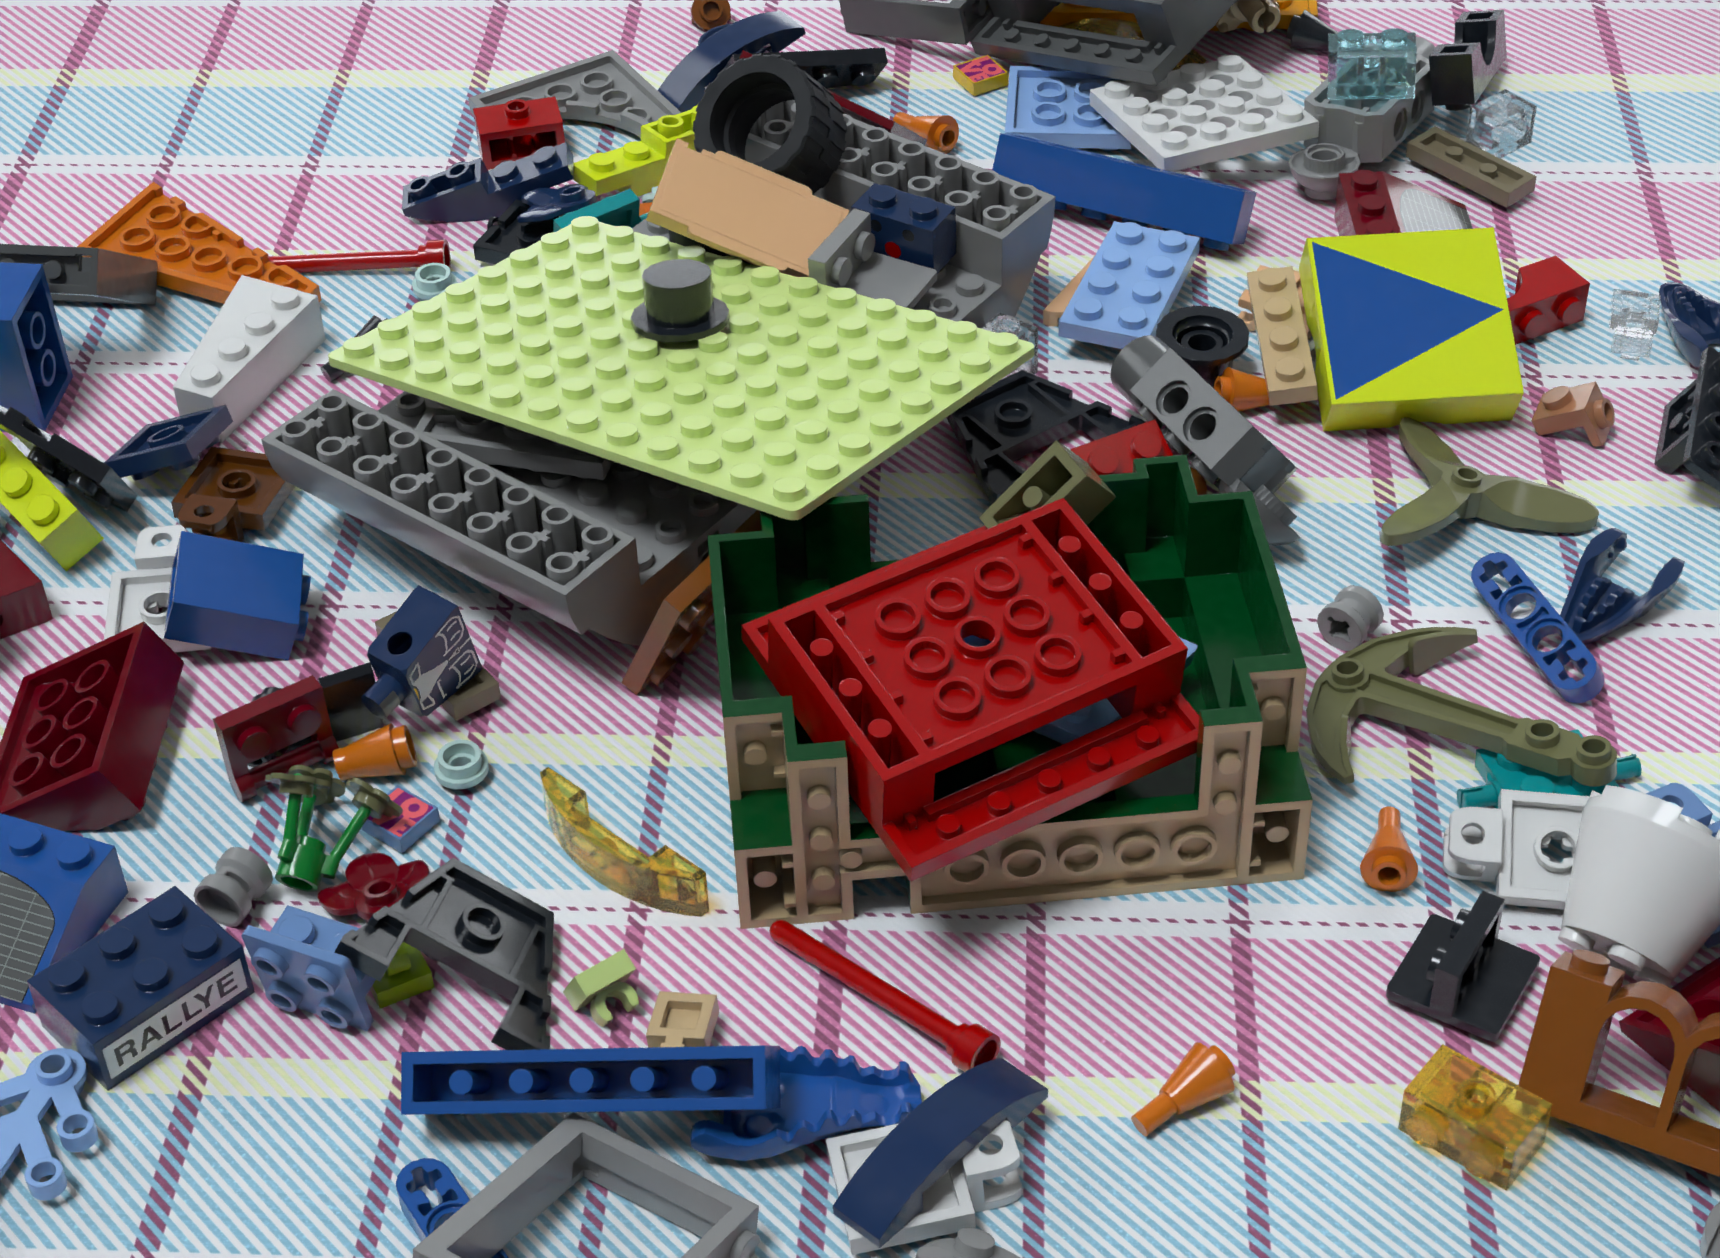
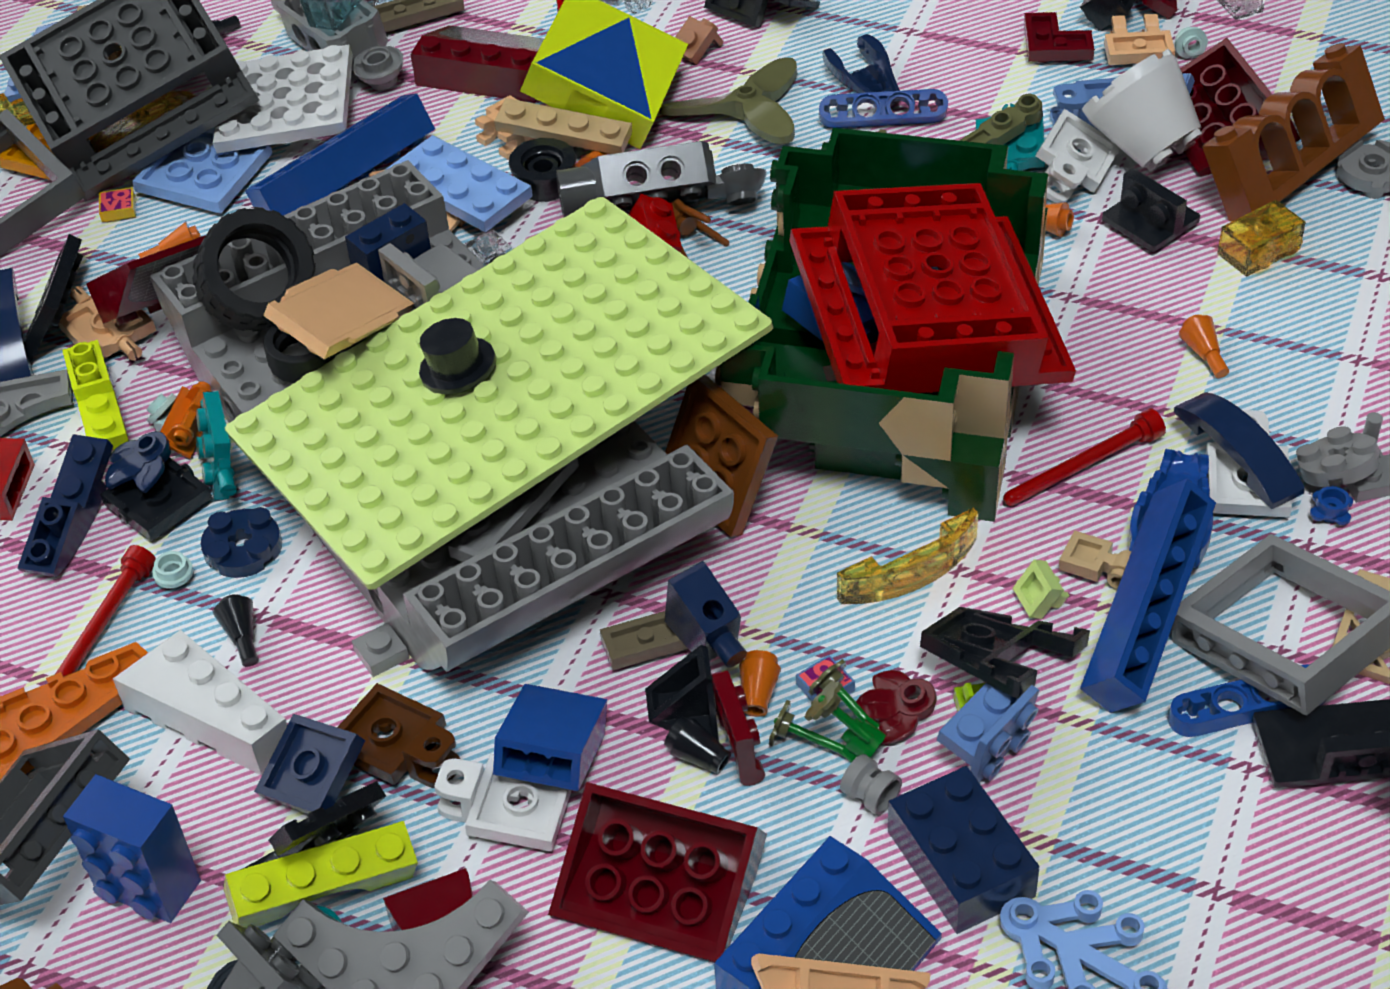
camera: 70 degrees left, 5 degrees up
(460, 765) = (788, 629): light aqua plate -> none
(1052, 477) = (811, 209): olive slope -> none

